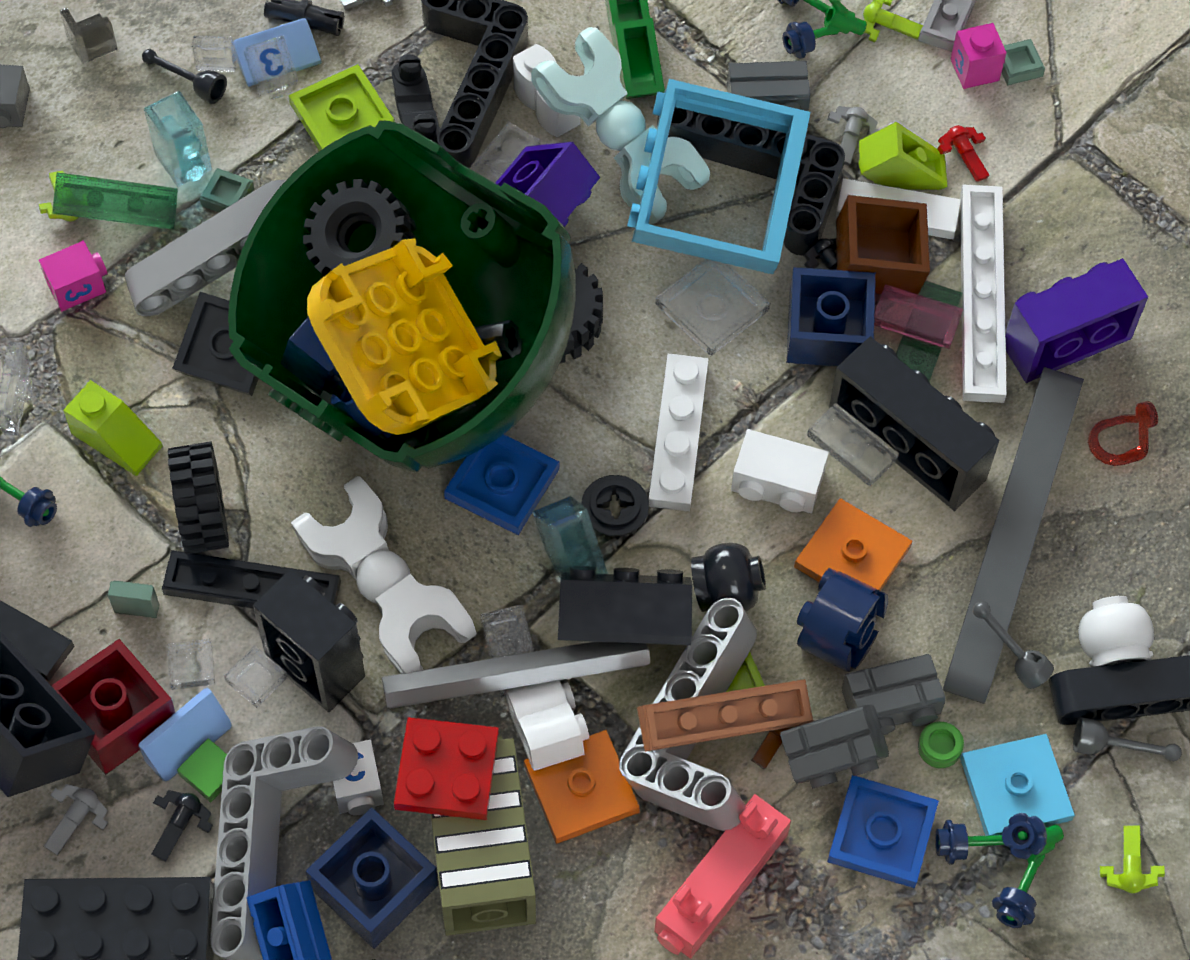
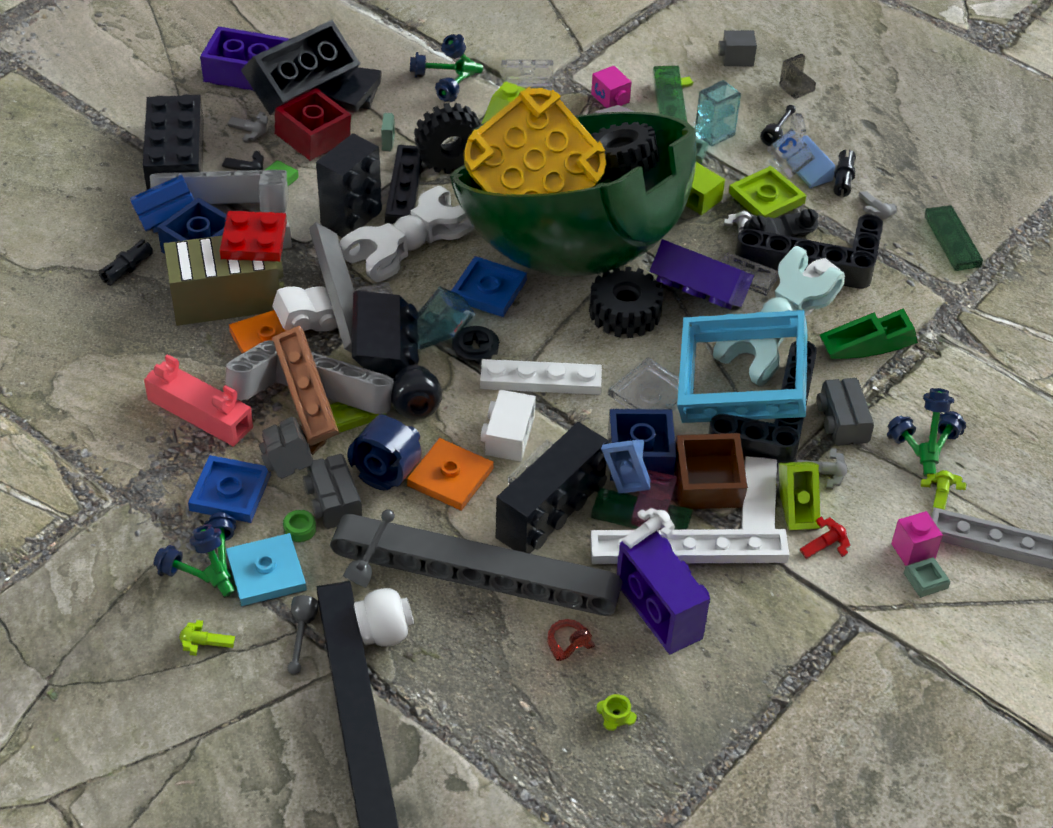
camera: 85 degrees right, 15 degrees down
(184, 733) = (298, 157): light blue slope -> none
(886, 321) = (627, 465): none -> medium blue slope
(1015, 290) = (657, 520): none -> white piece

